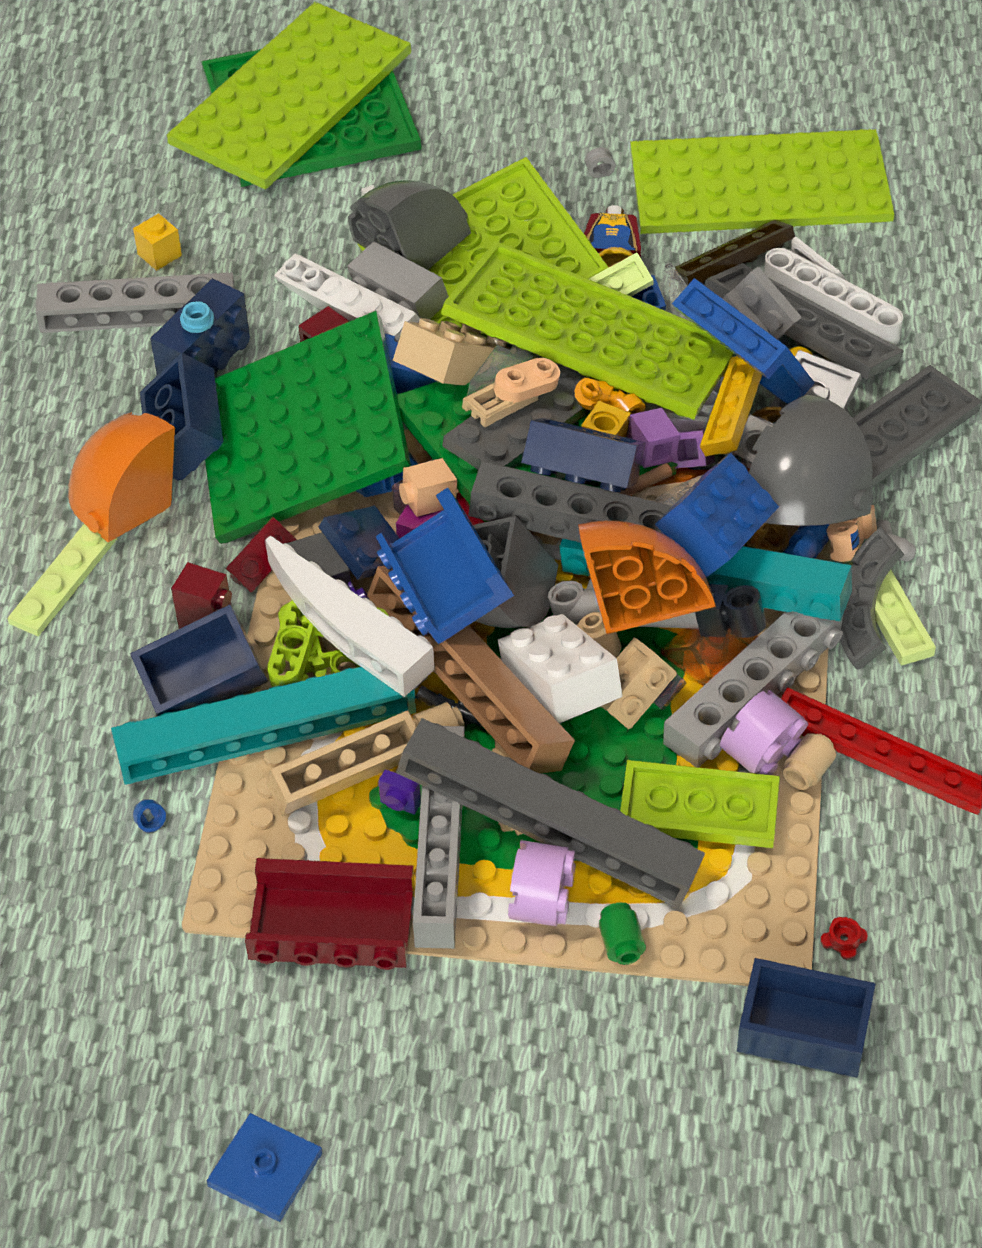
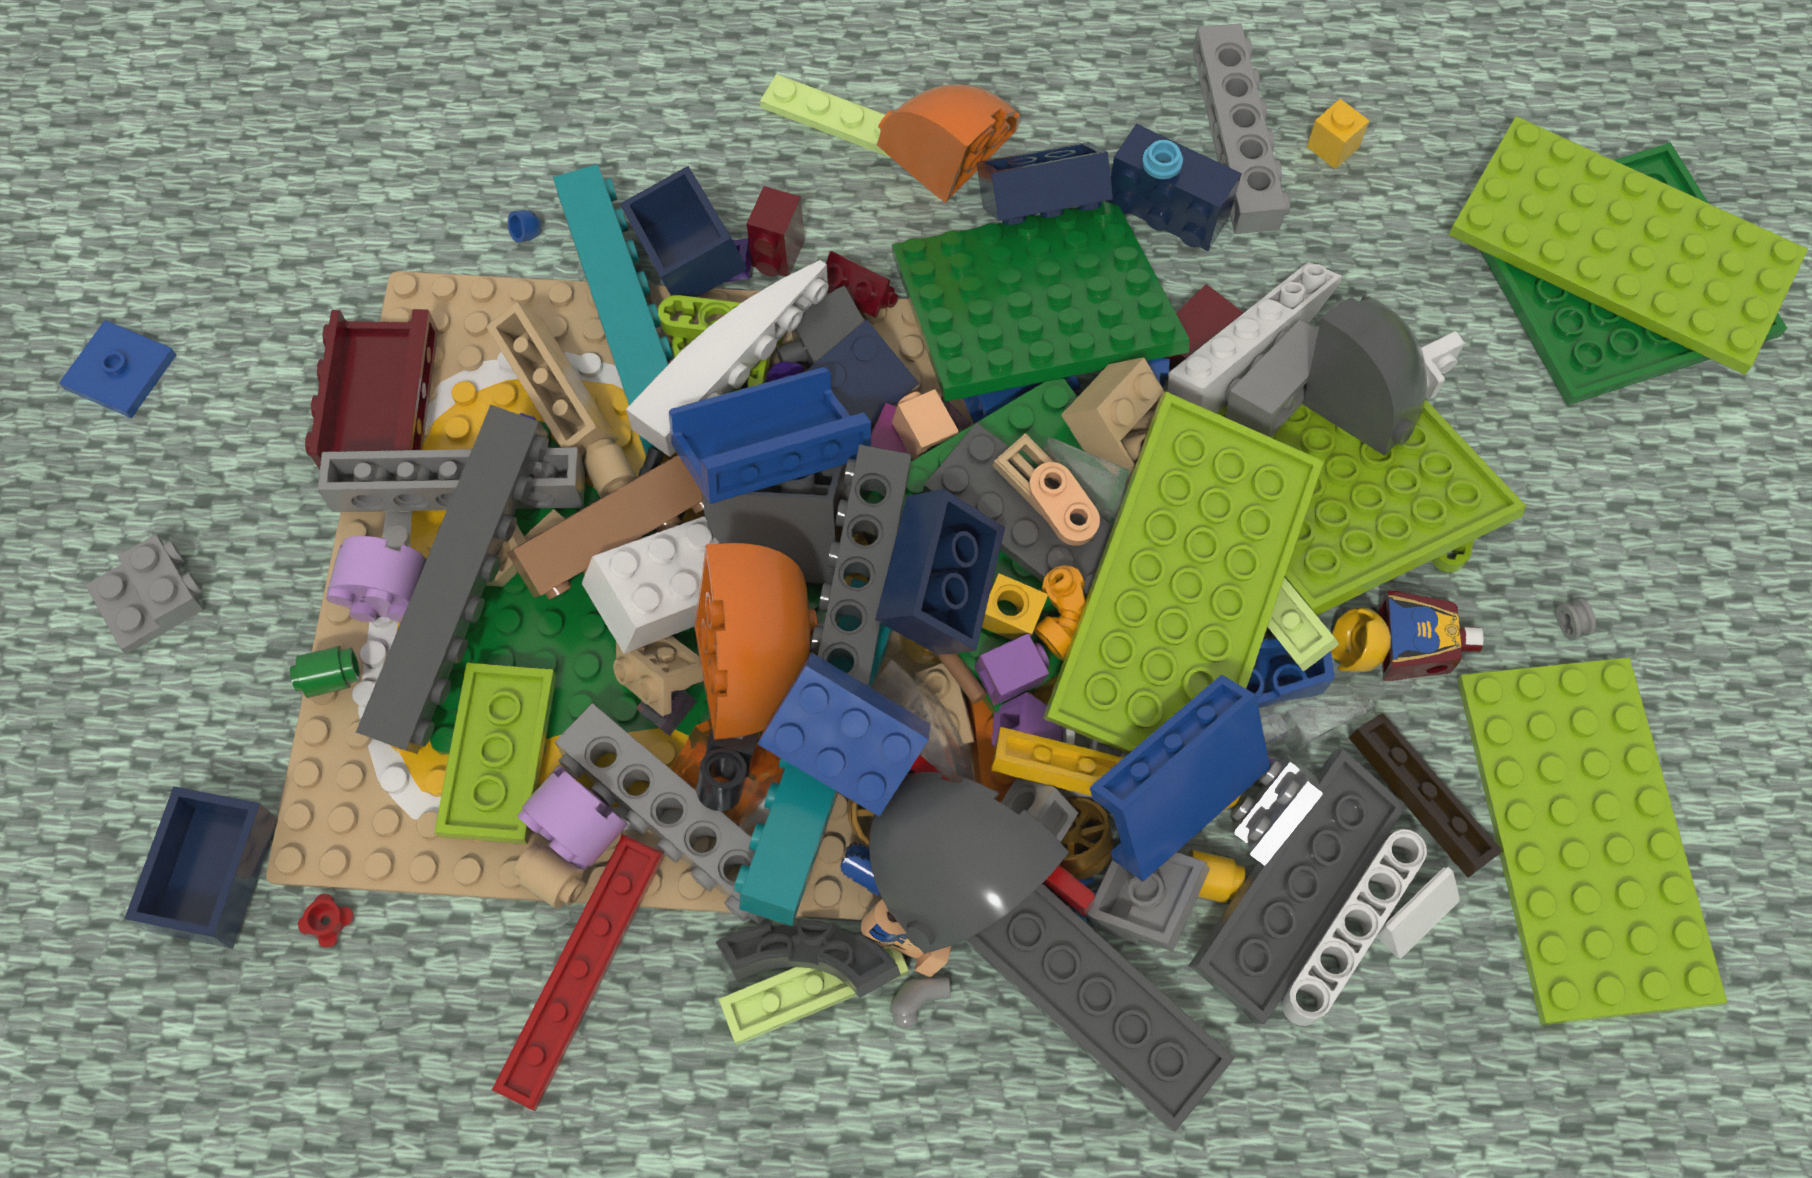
camera: 85 degrees right, 15 degrees up
(526, 1109) = (145, 593): none -> light grey plate

